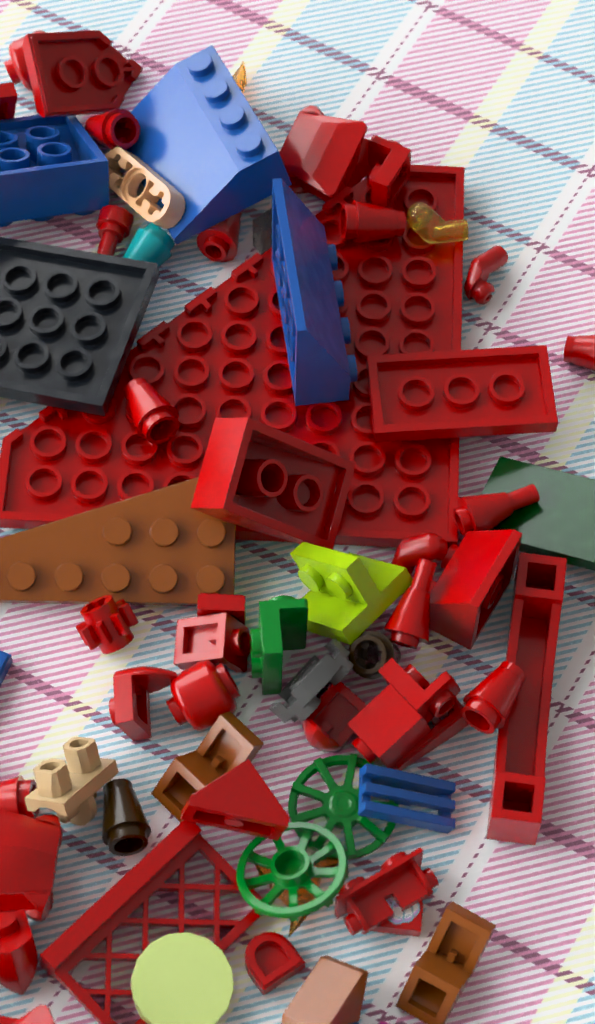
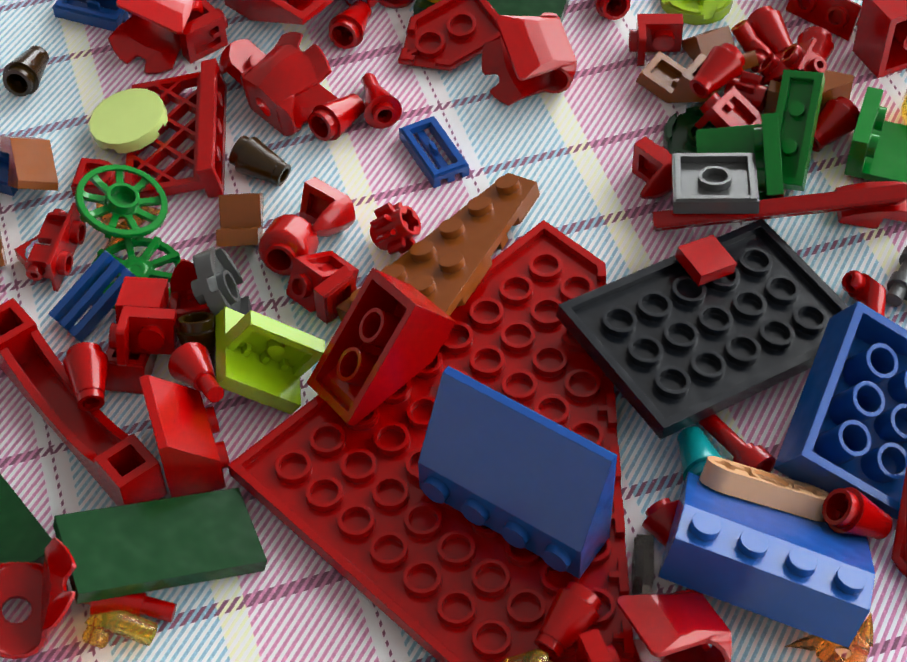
camera: 135 degrees right, 10 degrees down
(72, 784) = (303, 138): tan hips -> none
(151, 412) = (533, 343): red cone -> none
(238, 803) = (185, 188): red slope -> none
(280, 628) = (270, 282): green bracket -> none
(417, 547) = (246, 428): red arm -> none
(461, 393) = (334, 553): red plate -> none
(489, 510) = (225, 485): red cone -> none

